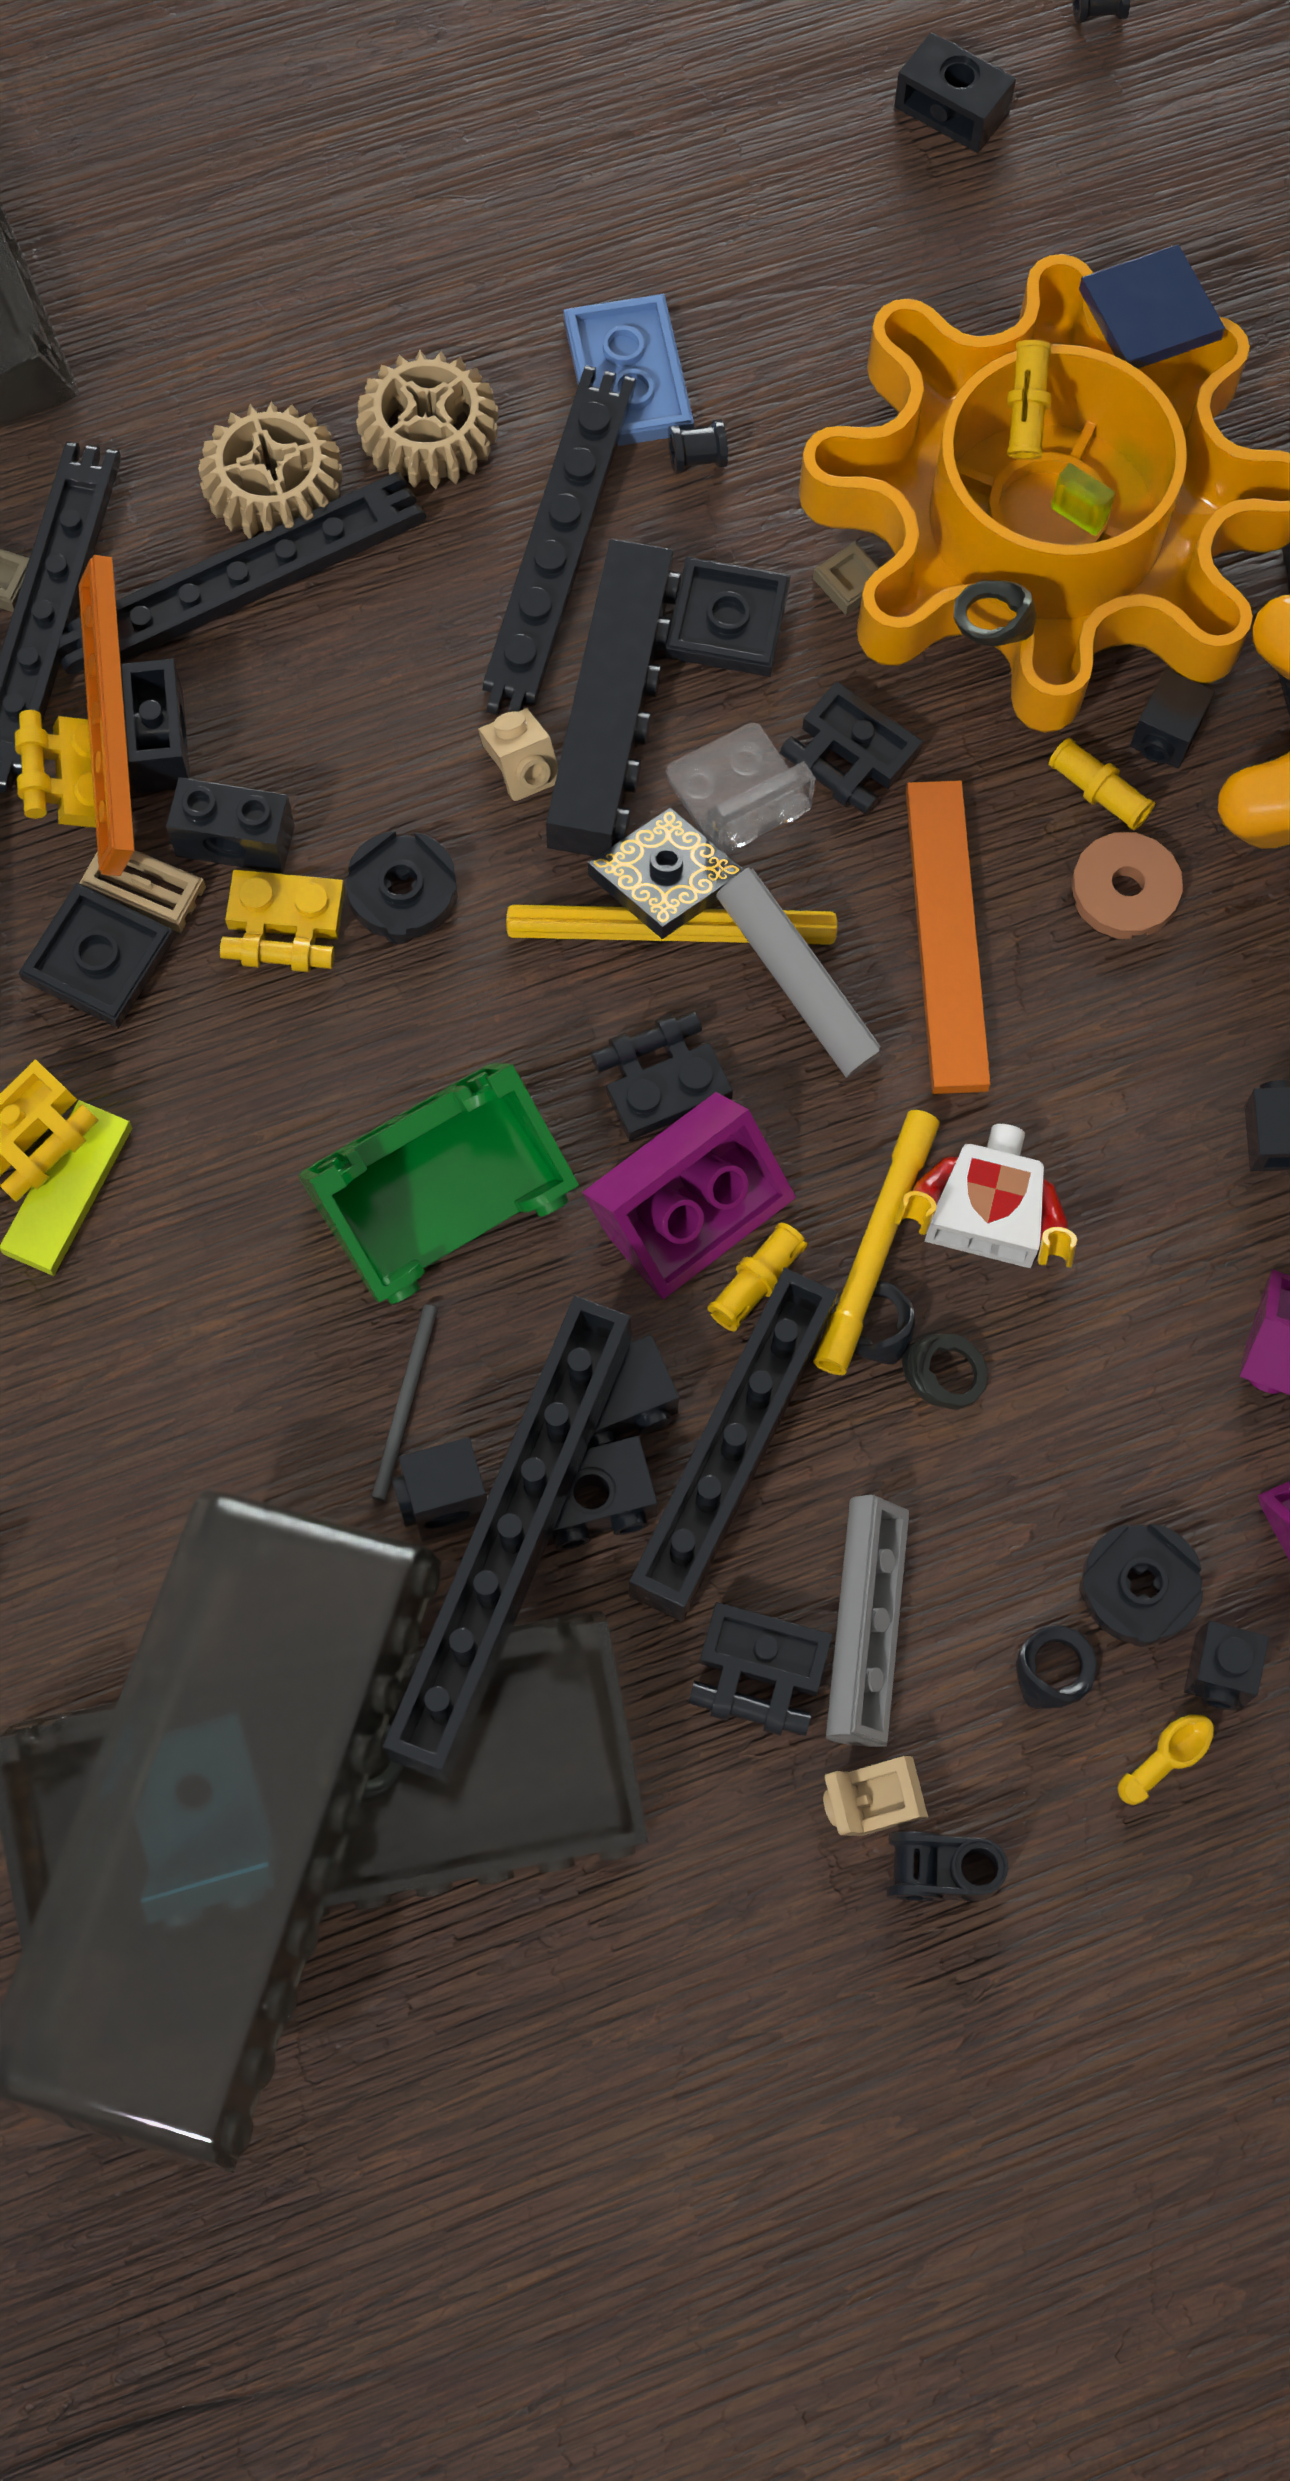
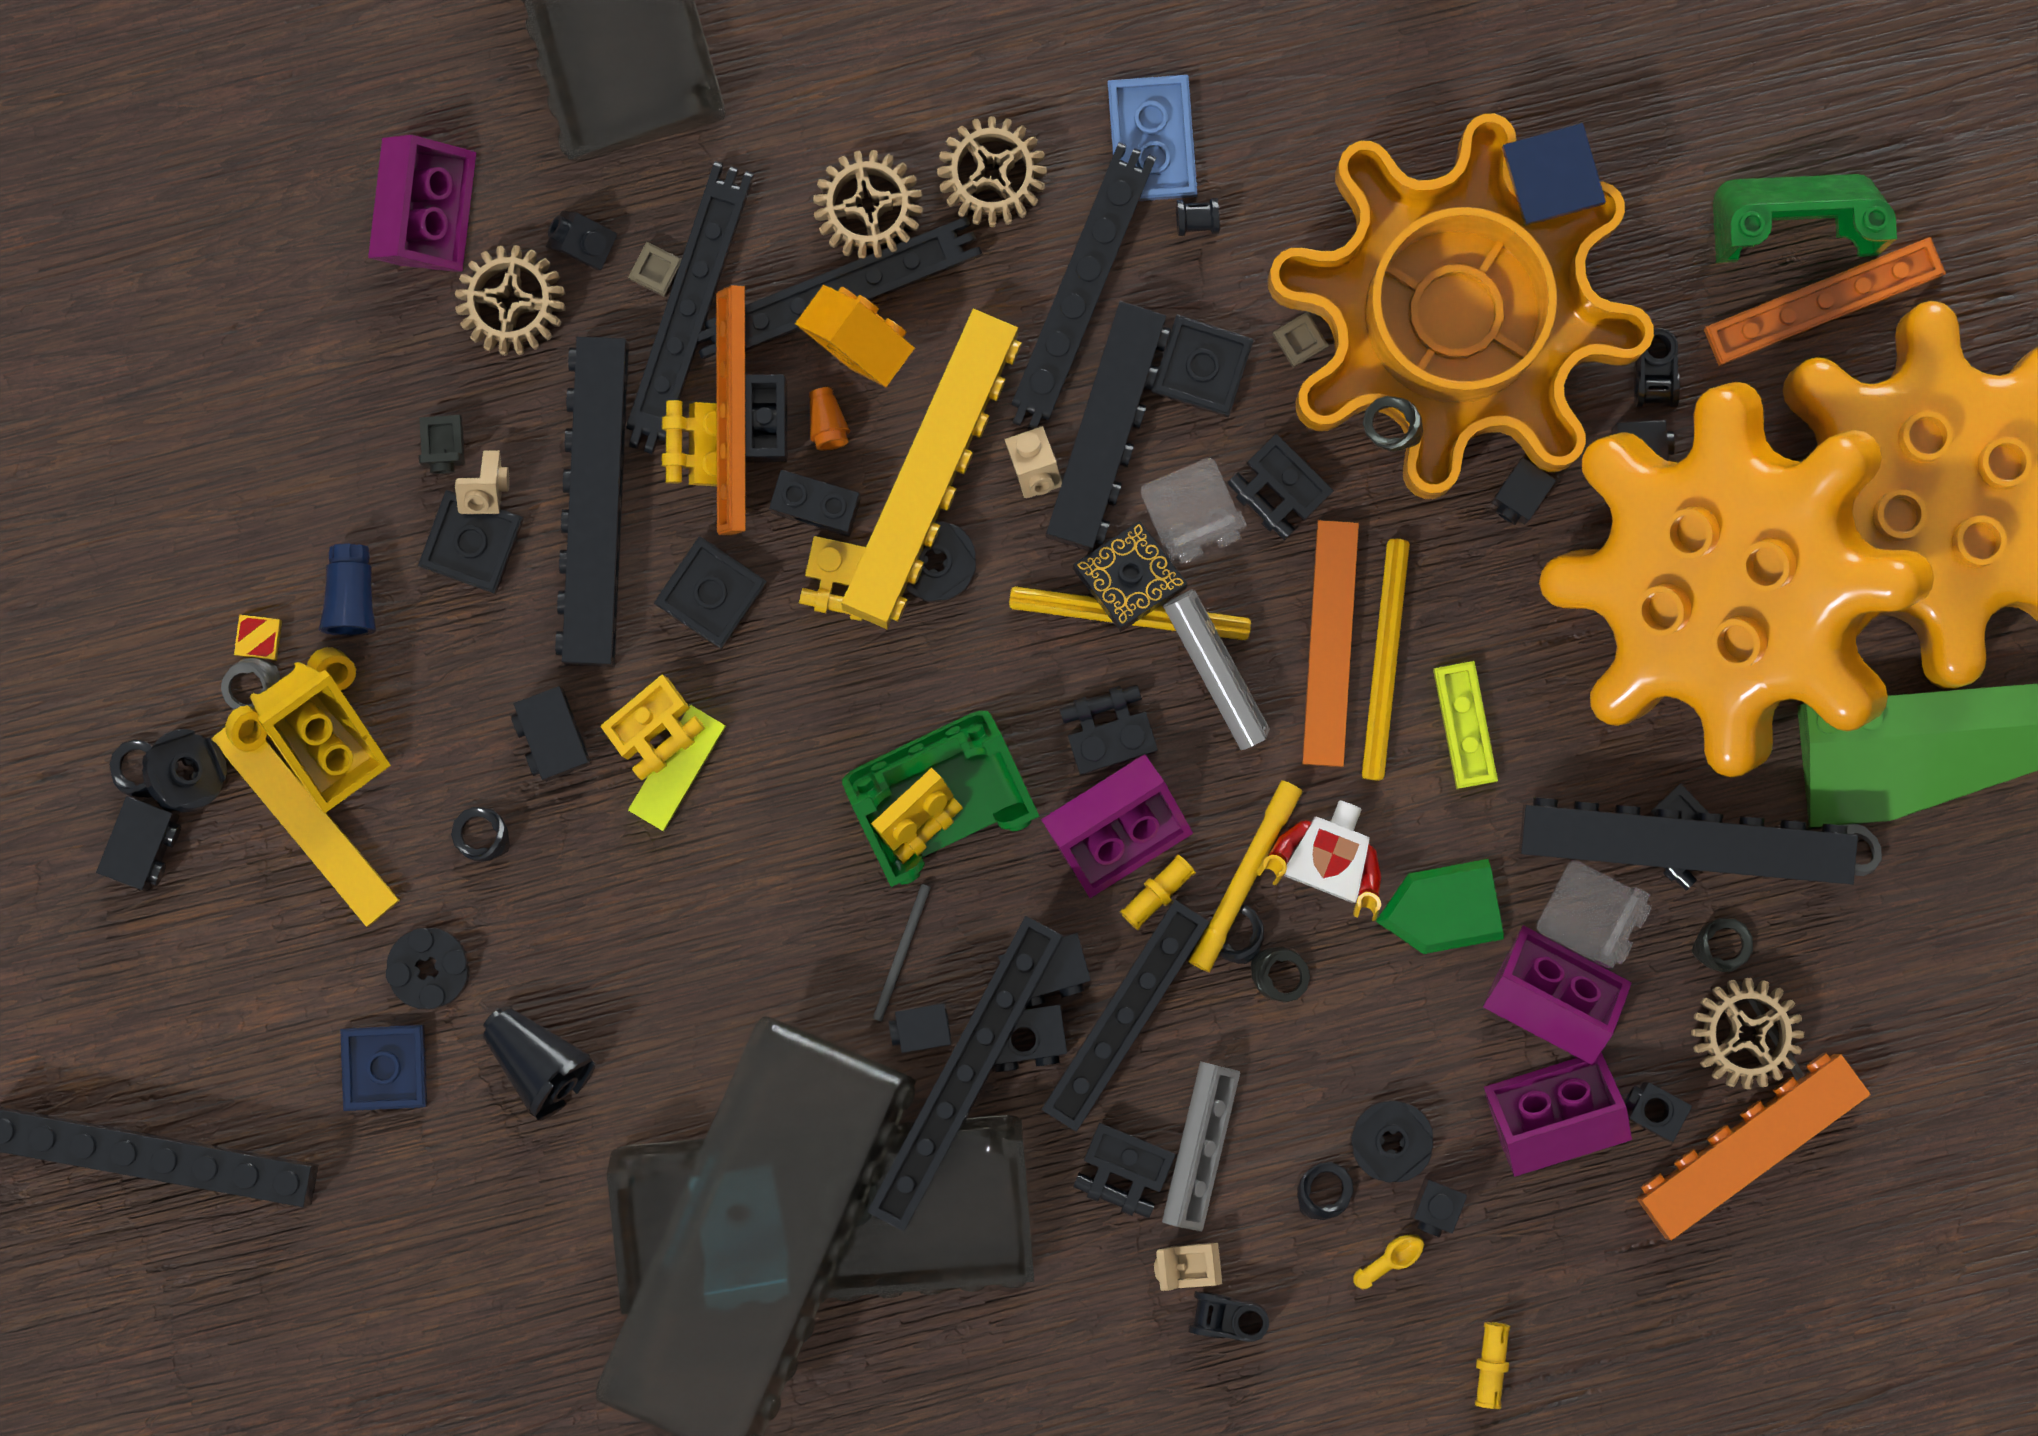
camera: 10 degrees right, 15 degrees up
(182, 904) = (776, 555): tan tile -> none
(239, 729) = (827, 422): none -> orange cone
(265, 602) = (856, 334): none -> light orange brick
(380, 769) = (931, 468): none -> yellow brick
(397, 1192) = (917, 816): none -> yellow plate
(1025, 949) = (1385, 659): none -> yellow axle
(1029, 399) = (1444, 254): yellow pin -> none
(1082, 499) = (1471, 341): clear neon green tile -> none
(1101, 783) = (1462, 536): yellow pin -> none
(1134, 857) = (1491, 610): nougat tile -> none
(1146, 1019) = (1465, 725): none -> neon yellow tile
(1162, 1258) = (1445, 908): none -> green tile

